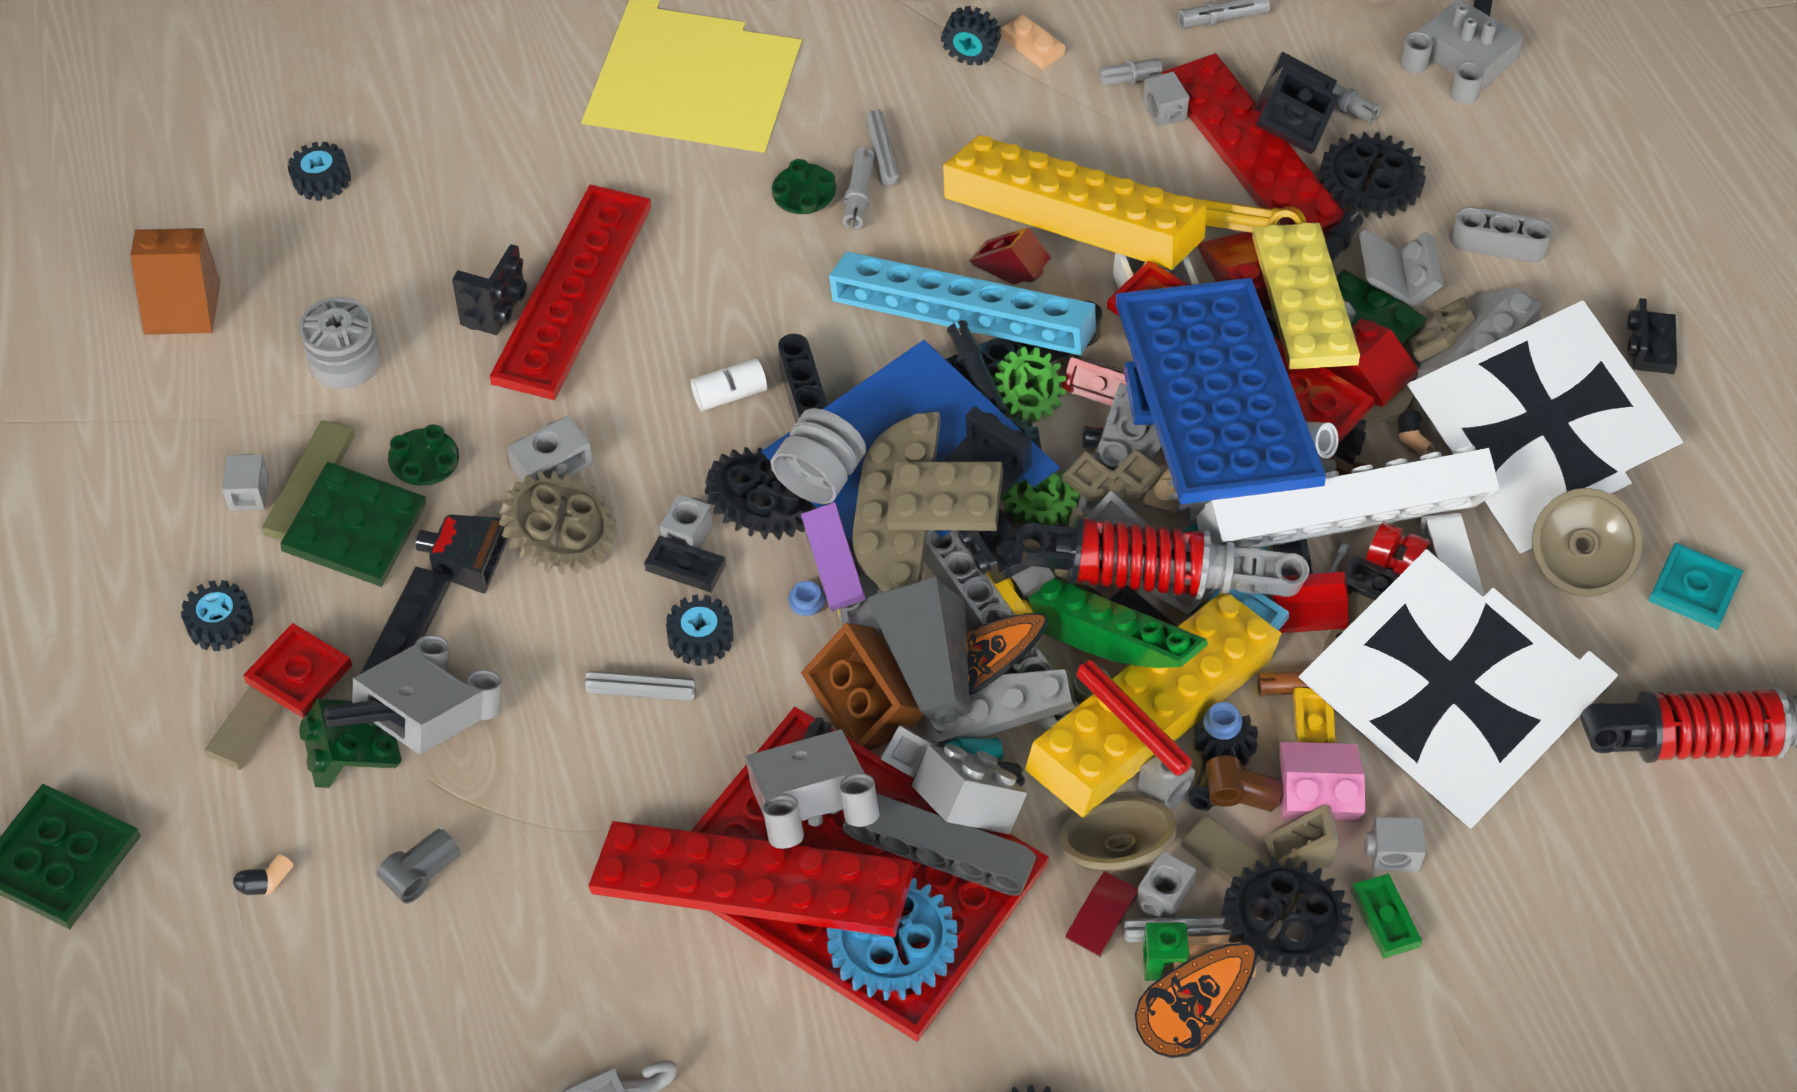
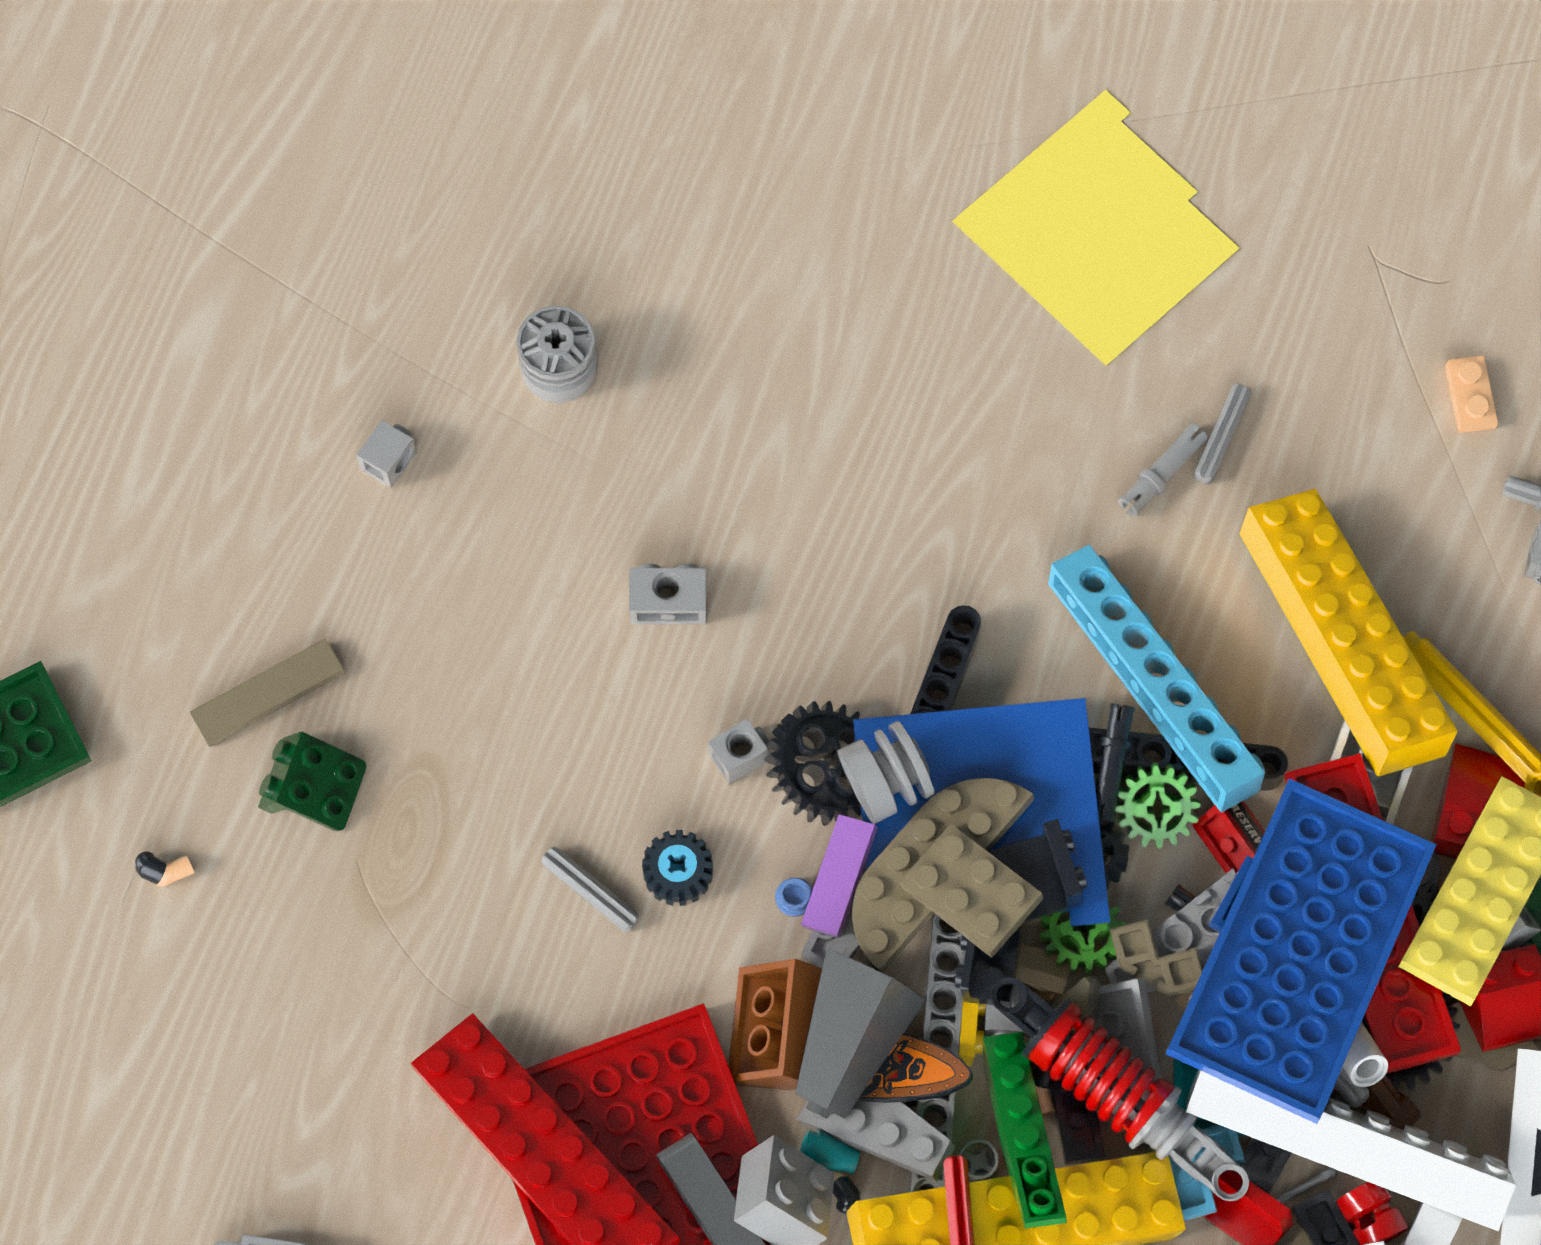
camera: 35 degrees right, 15 degrees up
(175, 280) = (451, 195): slope -> none
(217, 602) = (276, 567): black wheel -> none
(297, 670) = (308, 686): red plate -> none
(319, 171) = (665, 146): black wheel -> none
(327, 444) = (444, 484): olive tile -> none
(353, 524) = (452, 558): dark green plate -> none
(410, 615) = (426, 699): black plate -> none
(410, 872) = (281, 945): dark grey piece -> none
(418, 697) = (383, 785): light grey piece -> none
(423, 456) = (558, 522): dark green dish -> none
(465, 549) = (529, 649): black torso -> none
(486, 302) = (725, 396): black bracket -> none
(531, 517) = (600, 652): dark tan gear -> none
(571, 292) = (809, 420): red plate -> none
(685, 564) = (711, 790): black plate -> none
(728, 384) = (880, 621): white pin -> none
(803, 188) = (1110, 436): dark green dish -> none
(810, 781) = (647, 1098): light grey piece -> none
(907, 750) = (768, 1117): light grey brick -> none
(971, 35) = (1402, 357): black wheel -> none
(1012, 257) = (1252, 647): dark red slope -> none
(1410, 432) = (1494, 1093): arm -> none

